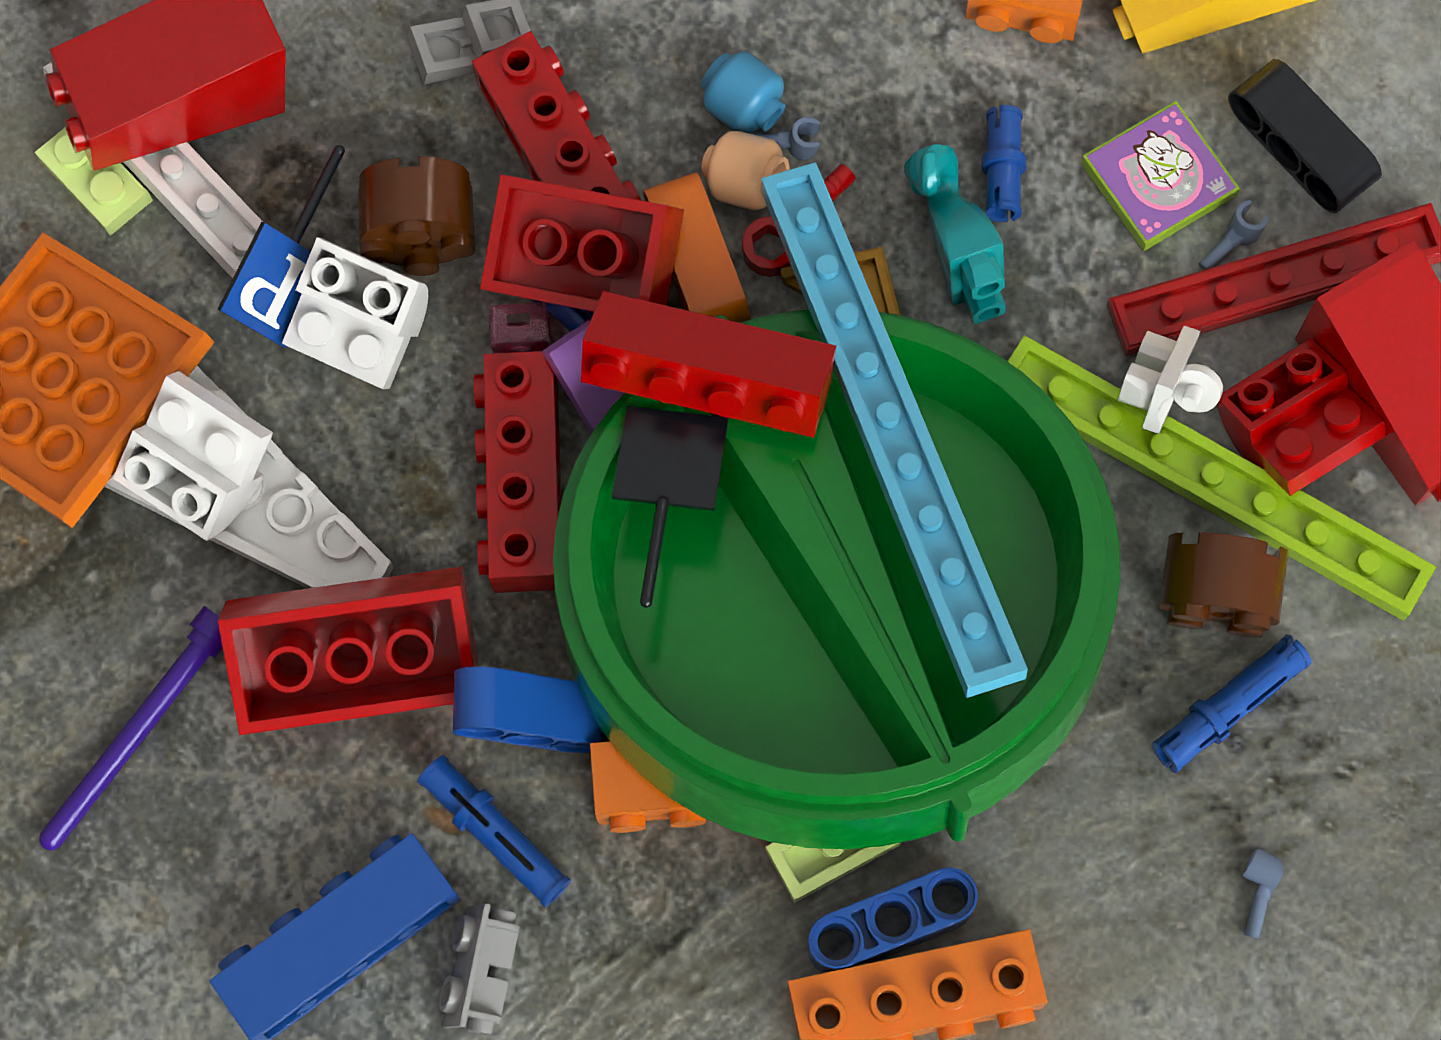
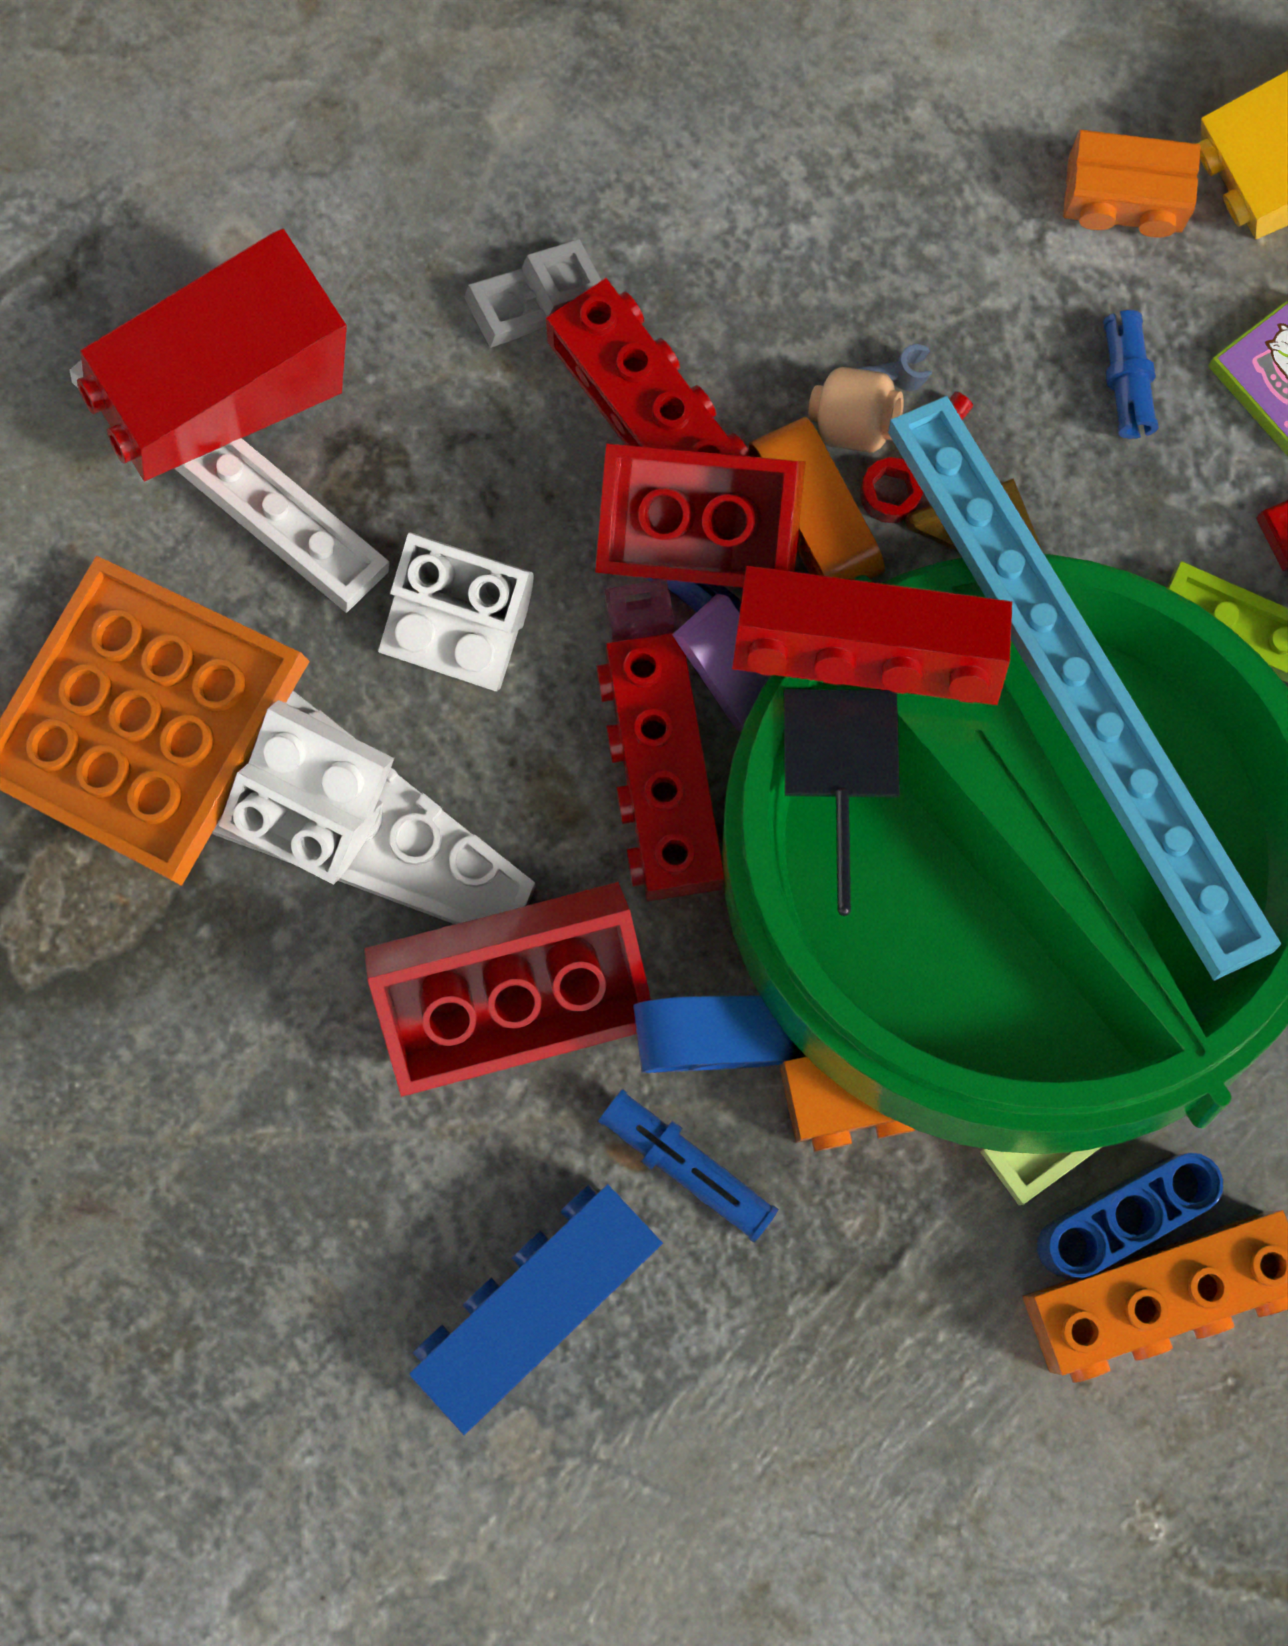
camera: 15 degrees left, 5 degrees up
(106, 194) = (160, 506): yellowish green plate -> none
(204, 642) = (344, 988): dark purple piece -> none
(268, 275) = (363, 570): piece -> none
(416, 214) = (510, 494): reddish brown brick -> none
(469, 991) = (685, 1348): light grey hinge -> none
(743, 92) = (842, 323): dark azure head -> none
(963, 234) = (1107, 461): teal hips -> none

